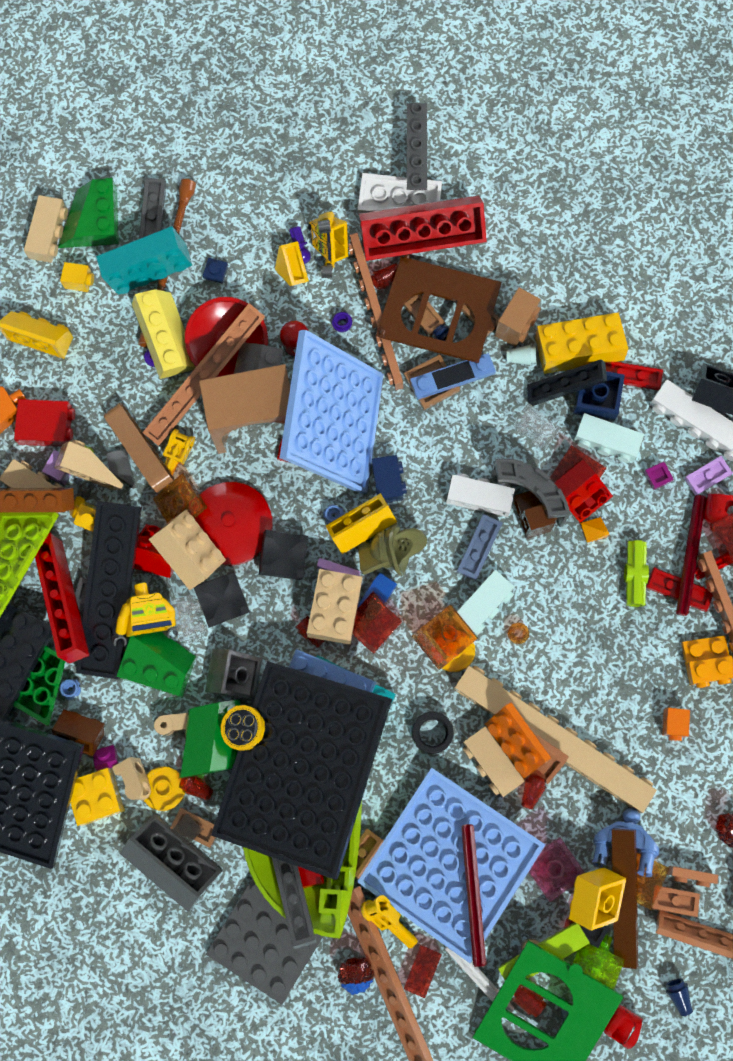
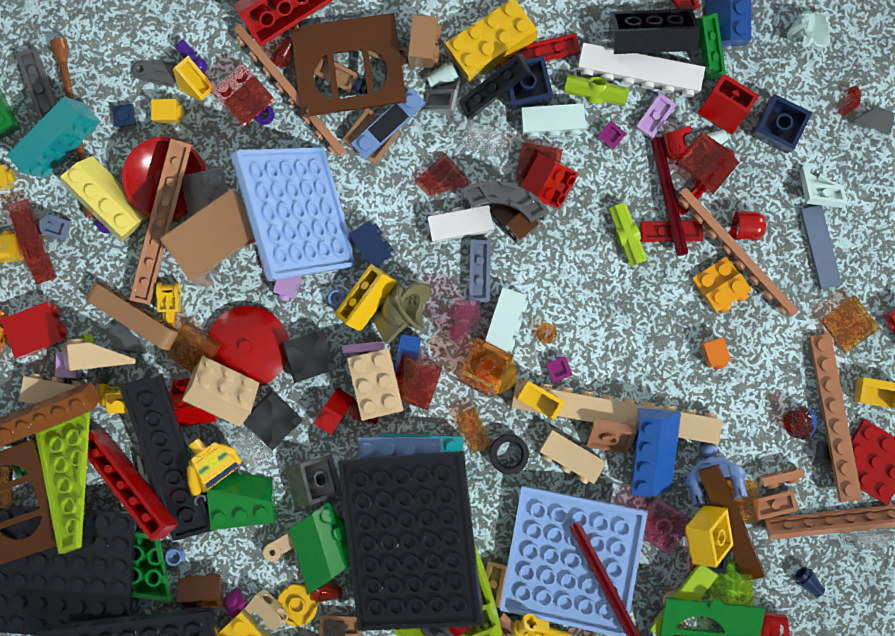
camera: 25 degrees left, 10 degrees up
(80, 344) = (31, 241): none -> clear red slope
(106, 340) = (54, 226): none -> sand blue plate
(242, 727) = (343, 529): tile -> none
(255, 282) = (166, 111): none -> yellow brick
(261, 245) = (155, 72): none -> dark grey piece
(283, 617) = (334, 411): none -> red slope
(289, 335) = (223, 146): red helmet -> none
(293, 481) = (287, 287): none -> lavender brick
(330, 240) = (217, 41): yellow torso -> none
(331, 295) = (243, 94): none -> clear red slope
(408, 694) = (473, 429): none -> clear orange plate
(447, 585) = (466, 318): none -> clear pink slope
(480, 446) = (442, 177): none -> clear red wing
(485, 690) = (540, 400): none -> yellow panel
(513, 377) = (443, 99): none -> light grey slope
(515, 672) = (559, 369): none -> magenta plate
(517, 740) = (586, 432): orange plate -> none
(533, 790) = (616, 464): clear red cone -> none
(576, 792) = (654, 452): none -> blue slope
(594, 530) = (574, 210): light orange slope -> none
(661, 428) = (596, 90): none -> lime piece

